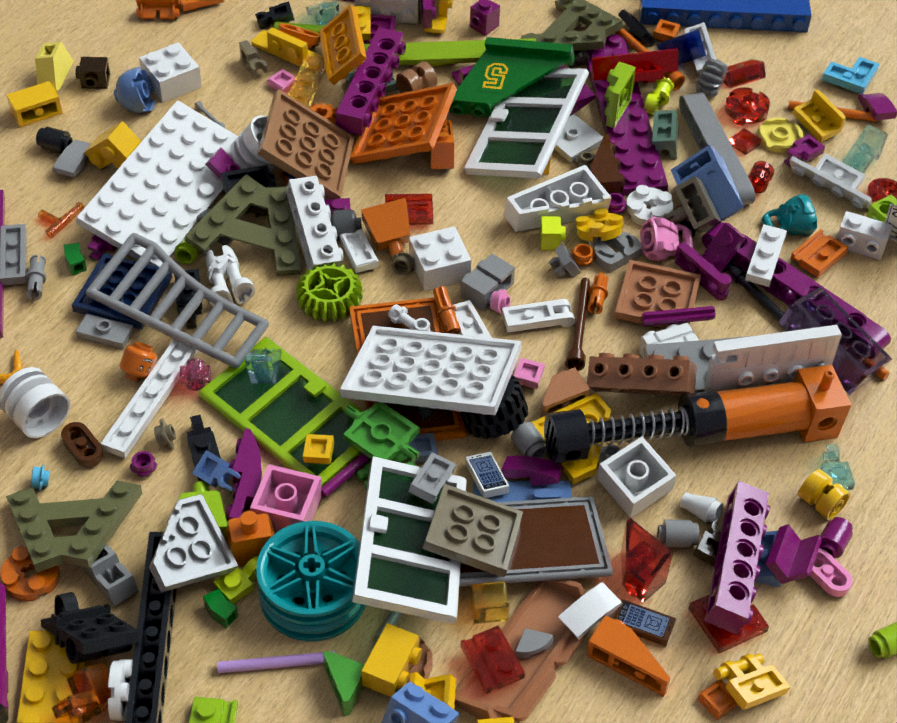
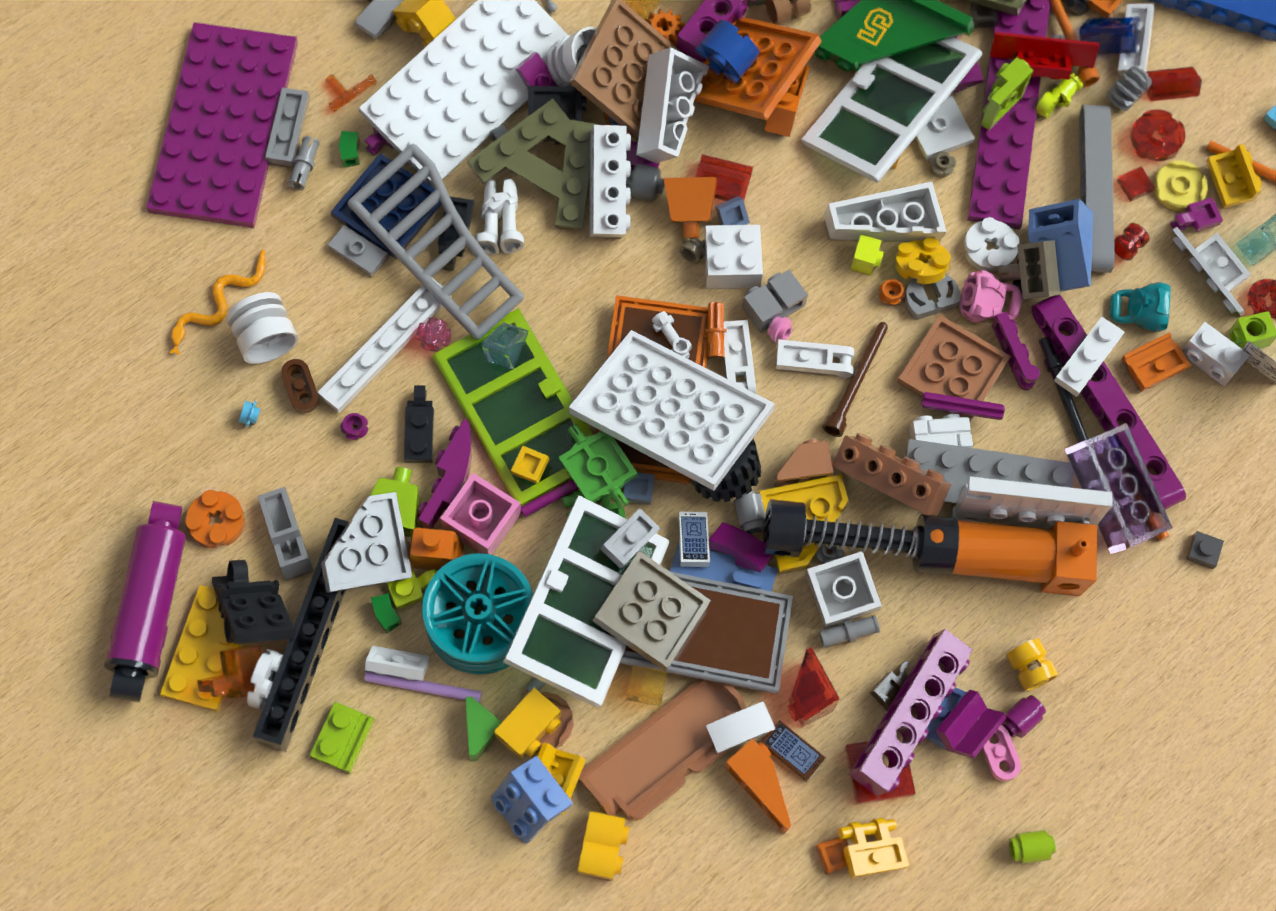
camera: 15 degrees right, 20 degrees up
(98, 517) = (296, 477): olive plate -> none
(138, 361) = (379, 303): orange head -> none
(165, 434) = (384, 398): dark tan plate -> none
(185, 252) = (464, 174): lime cone -> none
(214, 471) = (418, 459): medium blue plate -> none
(233, 648) = (397, 663): none -> white plate
(329, 292) = (582, 274): lime gear -> none
(345, 159) = (667, 103): none -> white wedge
(359, 251) = (651, 221): white plate -> none
(383, 110) = (727, 51): none -> blue brick
(426, 225) = (732, 212): none -> sand blue plate
(492, 659) = (628, 749): clear red plate -> none
(529, 373) = (779, 428): bright pink plate -> none
(532, 643) = (673, 743): light grey tile -> none
(565, 261) = (870, 297): light grey tile -> none
(598, 293) = (890, 347): orange axle -> none
(607, 167) = (956, 184): reddish brown slope -> none
(617, 203) = (955, 233): magenta plate -> none
(656, 510) = (849, 631): none -> light grey pin
(666, 132) = (1046, 151): sand green hinge -> none
(678, 533) = (863, 664): light grey brick -> none
(703, 507) = (901, 641): white cone -> none
(723, 246) = (1046, 331): magenta plate -> none
(837, 470) = (1058, 640): clear light blue plate -> none

